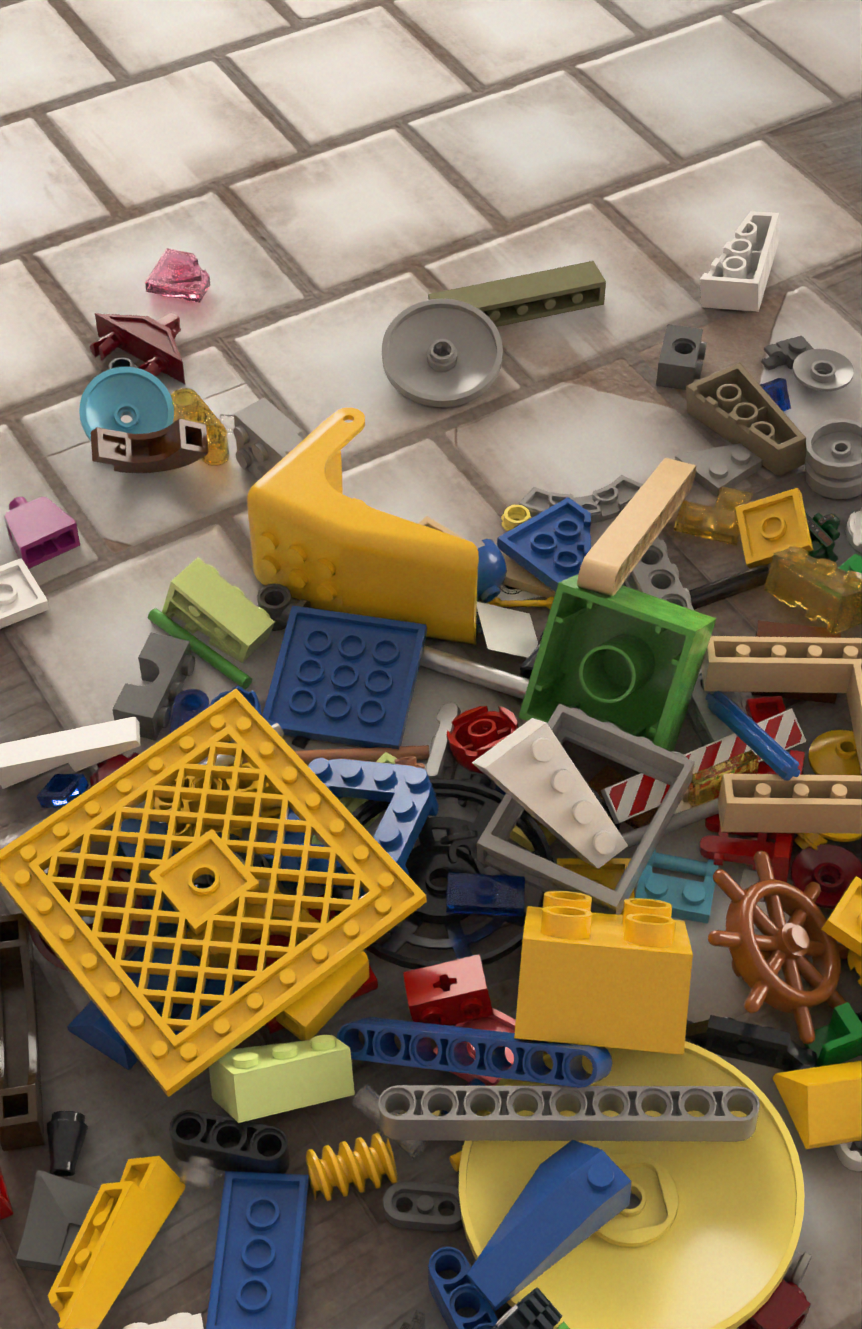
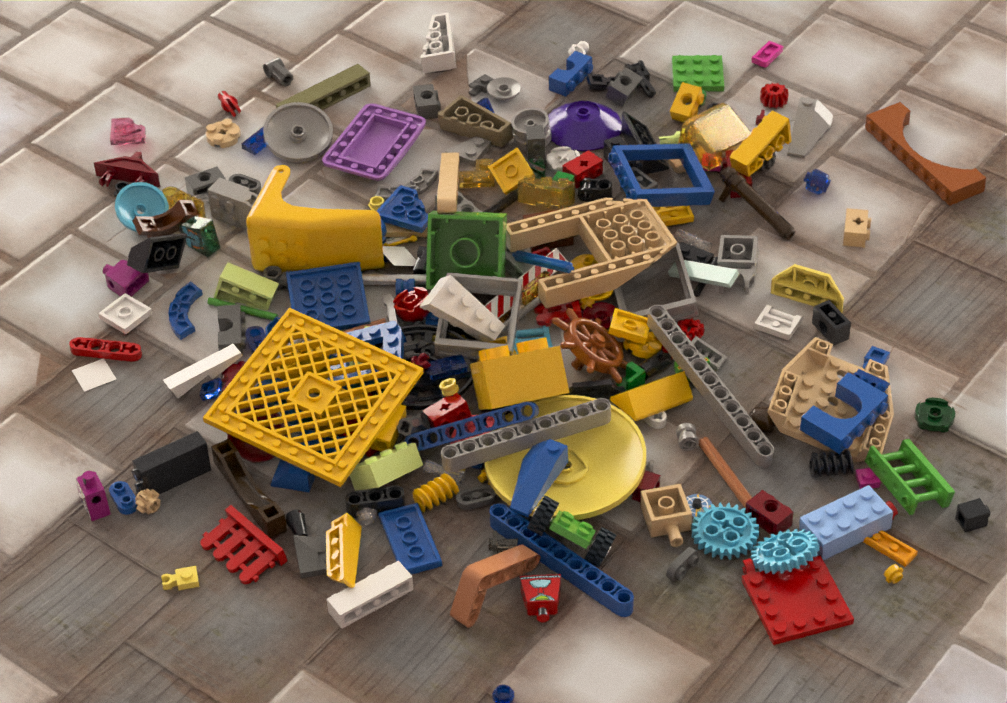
camera: 20 degrees left, 5 degrees down
(97, 615) = (179, 310): none -> blue tile
(99, 505) = (157, 253): none -> black slope
(191, 480) = (201, 235): none -> clear green torso
(242, 392) = (202, 181): none -> dark grey brick
(309, 413) = (253, 184): none -> dark grey plate
(315, 313) = (215, 133): none -> tan plate
(360, 272) = (229, 103): none -> red arm
(366, 351) = (255, 142): none -> clear blue plate
(369, 1001) = (413, 424): none -> dark grey piece
(435, 870) = (421, 361): none -> dark red plate
(462, 237) = (278, 71): none -> dark grey piece
(469, 942) = (449, 387): none -> light yellow bush
(488, 694) = (402, 285): none -> blue wheel
(559, 406) = (374, 142): none -> medium lavender wedge
(836, 487) = (535, 142): none -> dark grey brick

